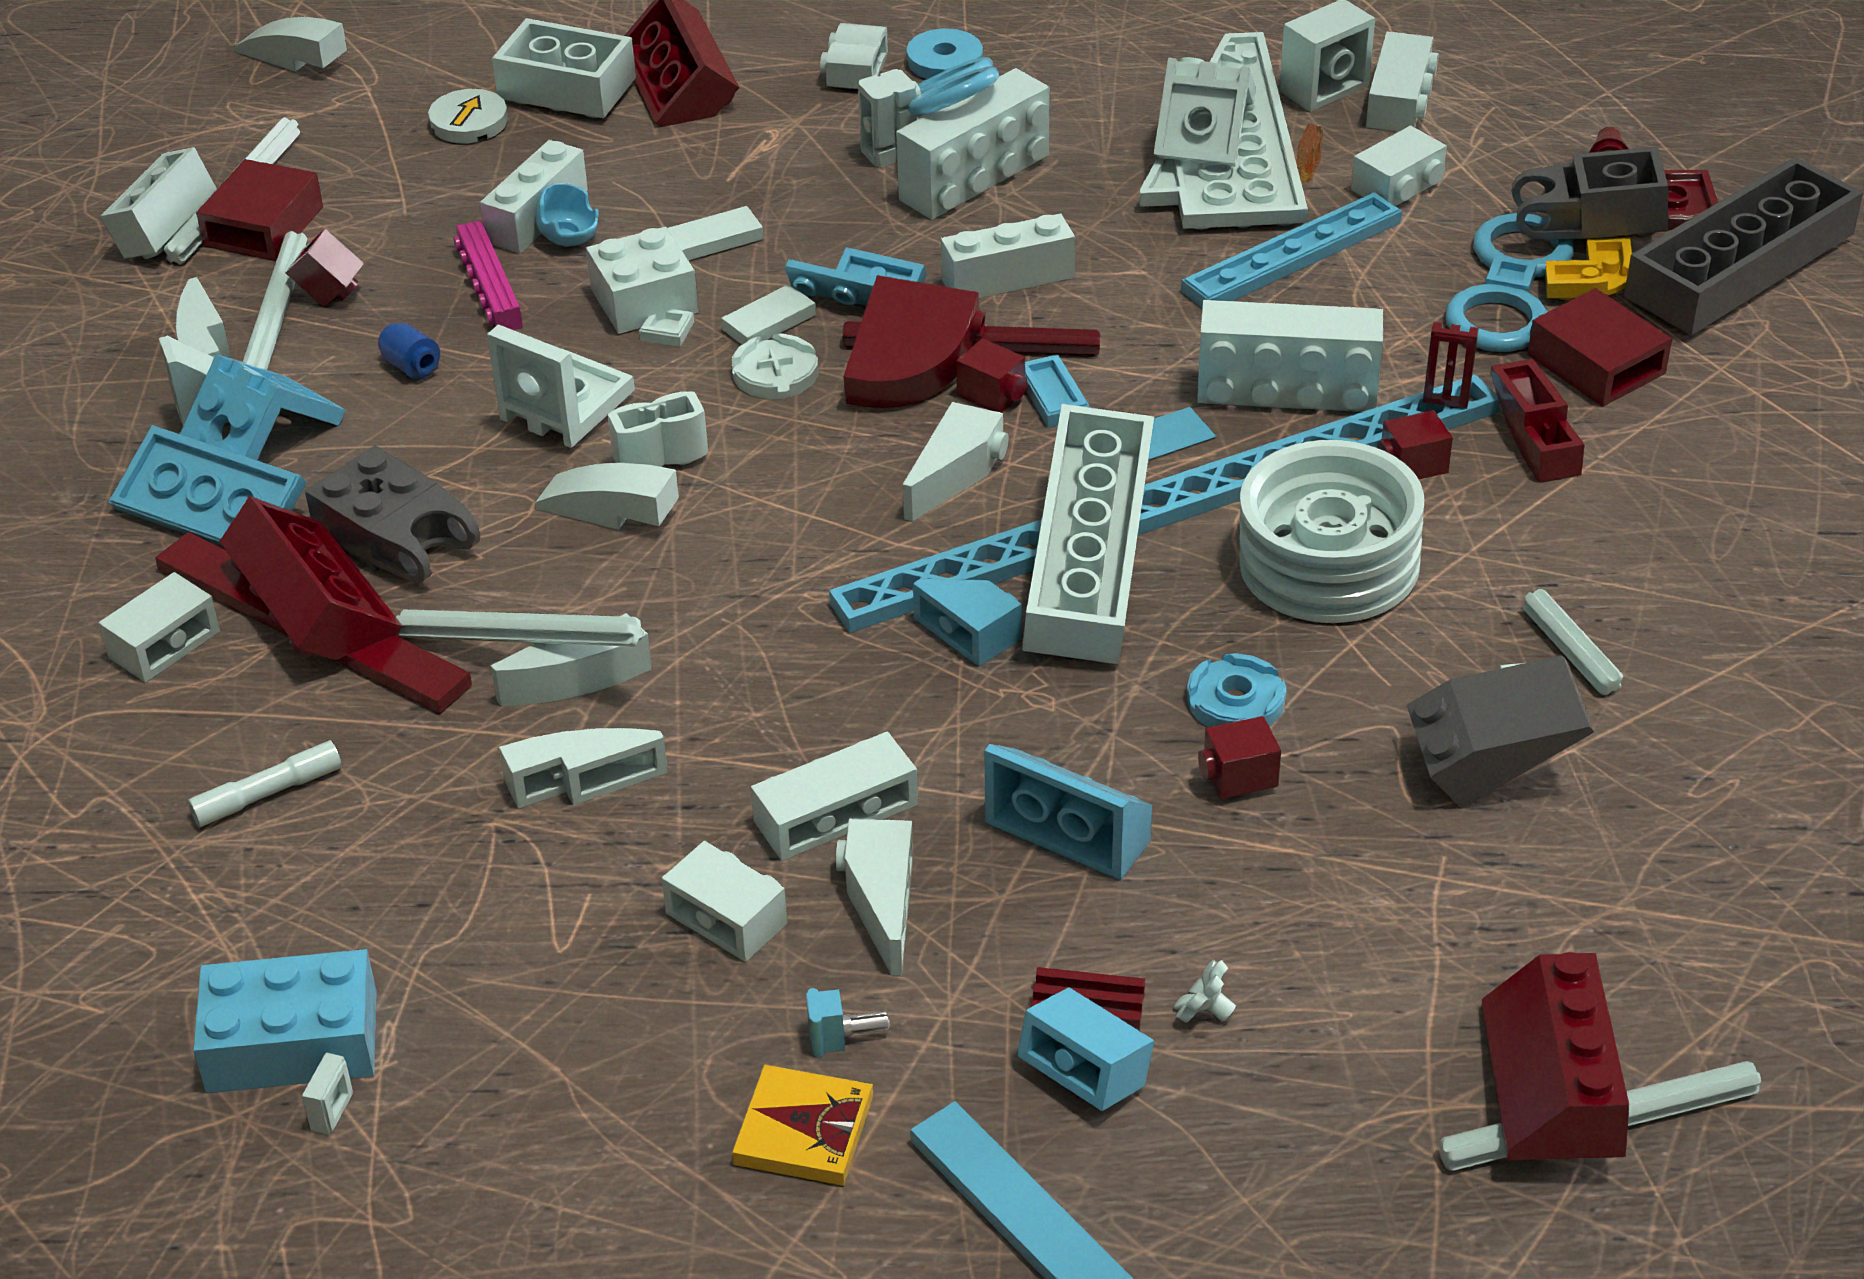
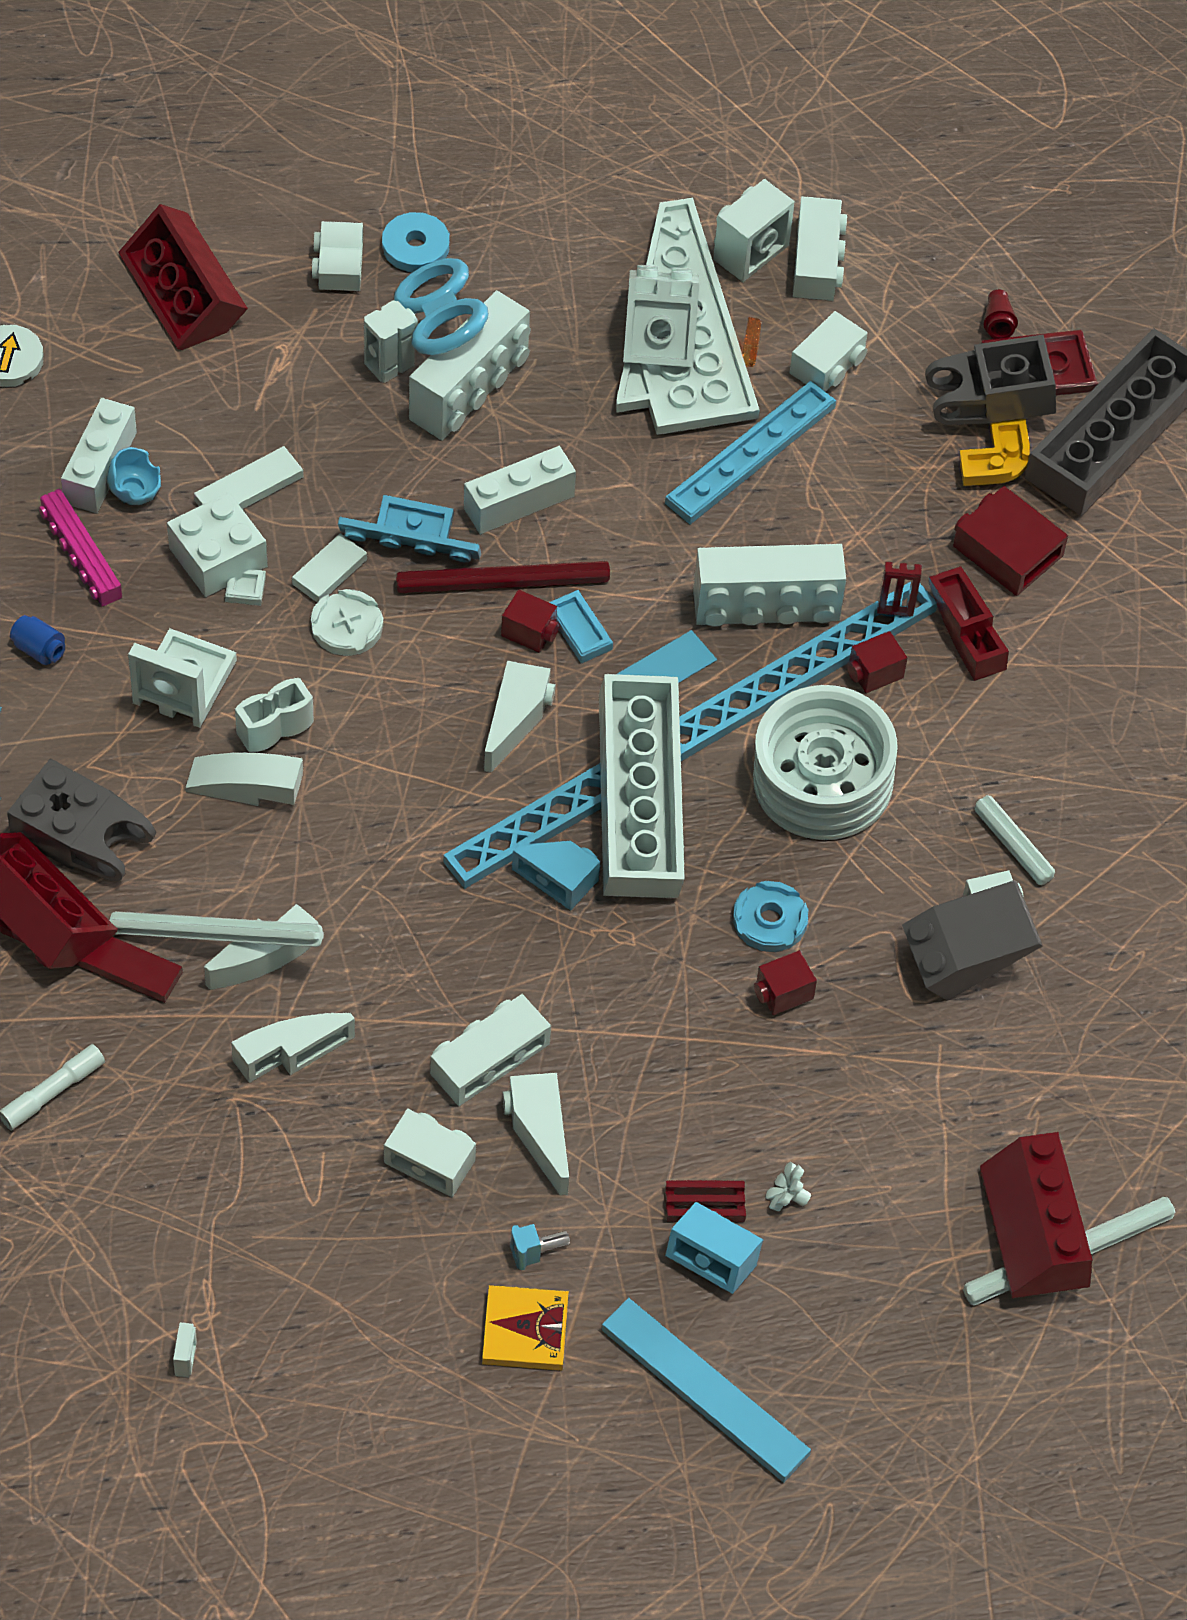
camera: 15 degrees left, 15 degrees up
(280, 1016) = (137, 1294): medium azure brick -> none
(564, 68) = (86, 299): light aqua brick -> none
(910, 342) = (459, 596): dark red brick -> none
(1064, 811) = (664, 1044): medium azure slope -> none
(1506, 283) = (930, 475): medium azure bar -> none

